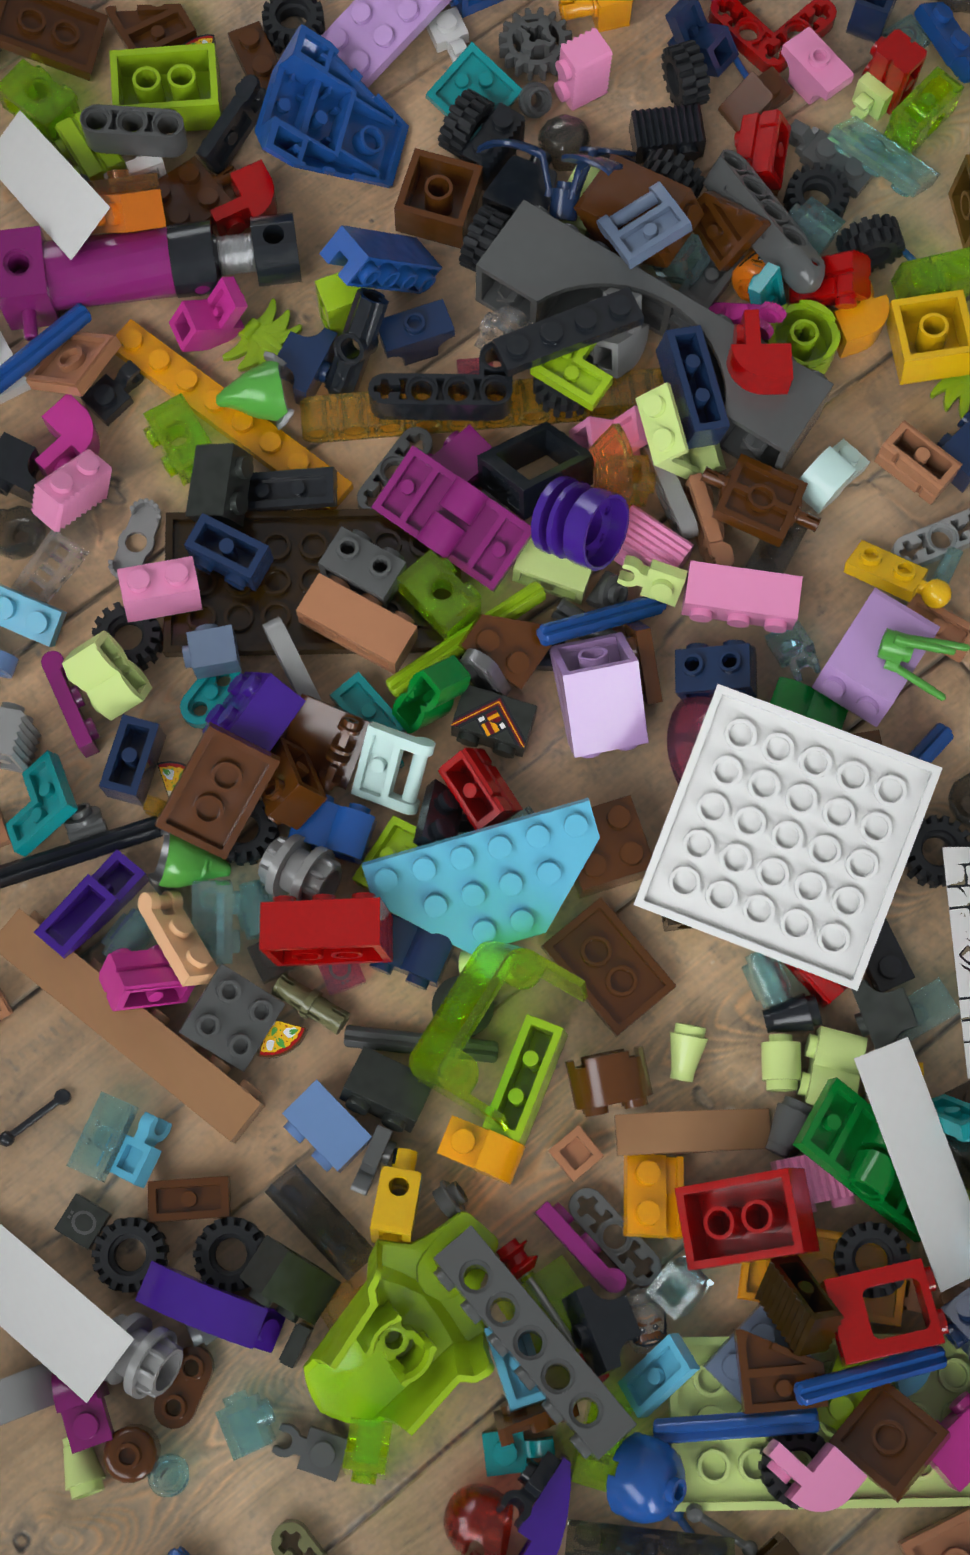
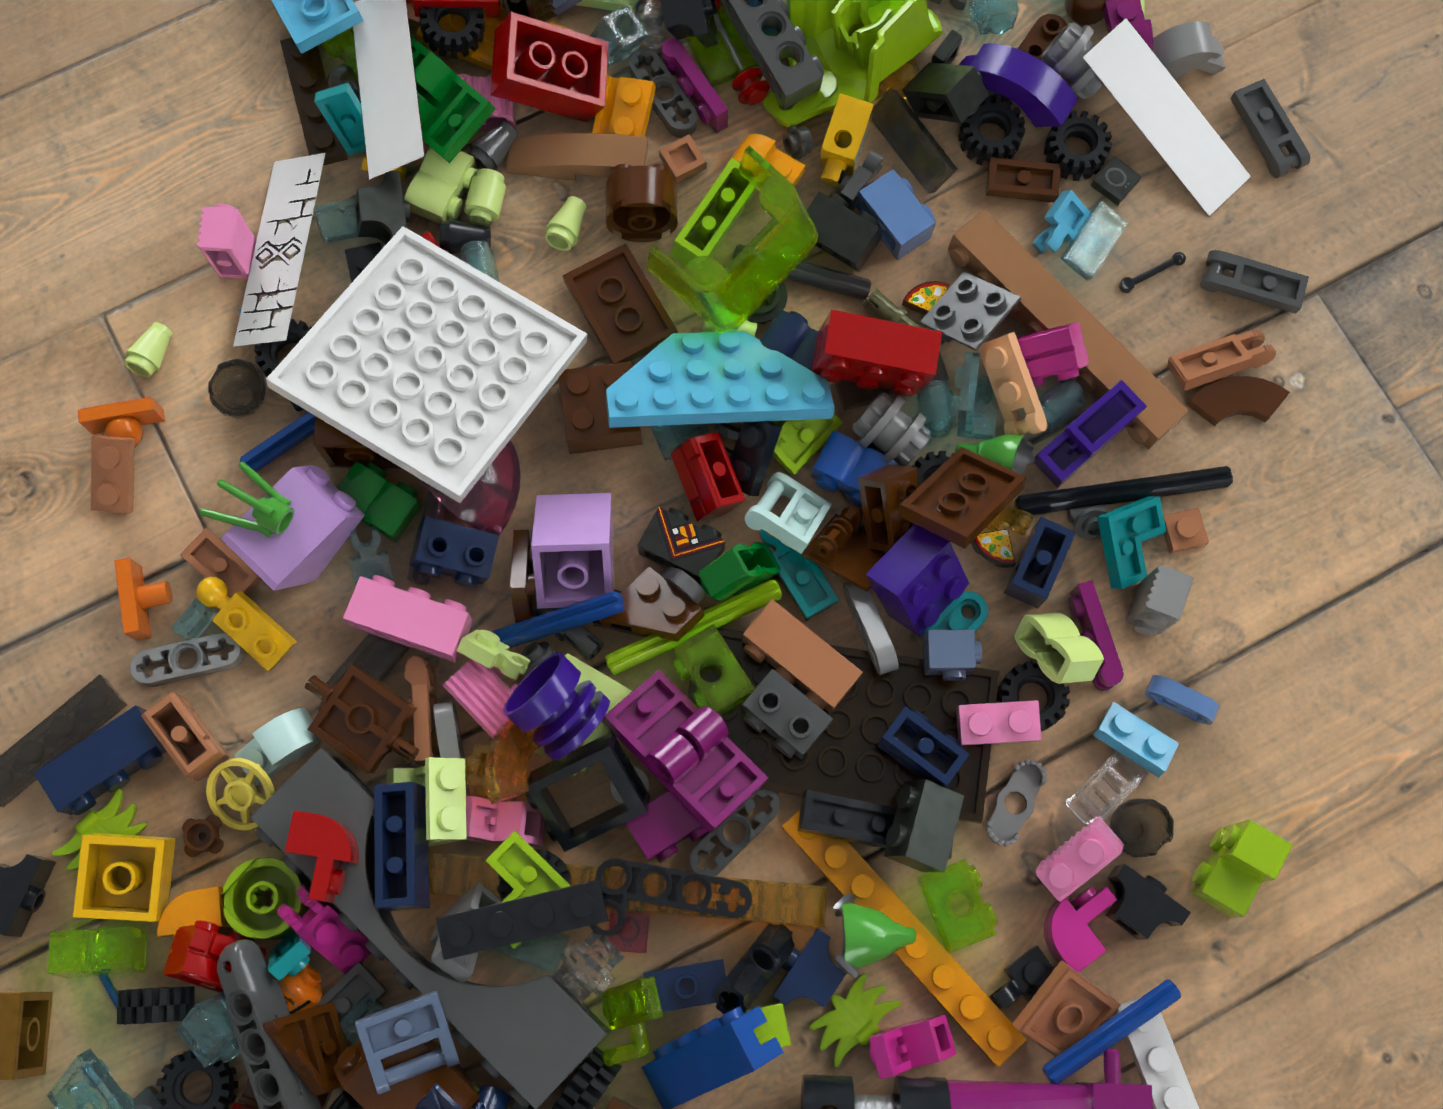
camera: 170 degrees left, 0 degrees up
(454, 303) = (630, 1007): none -> clear neon green plate
(853, 427) = (239, 792): none -> light yellow wheel
(878, 382) = (192, 830): none -> reddish brown plate

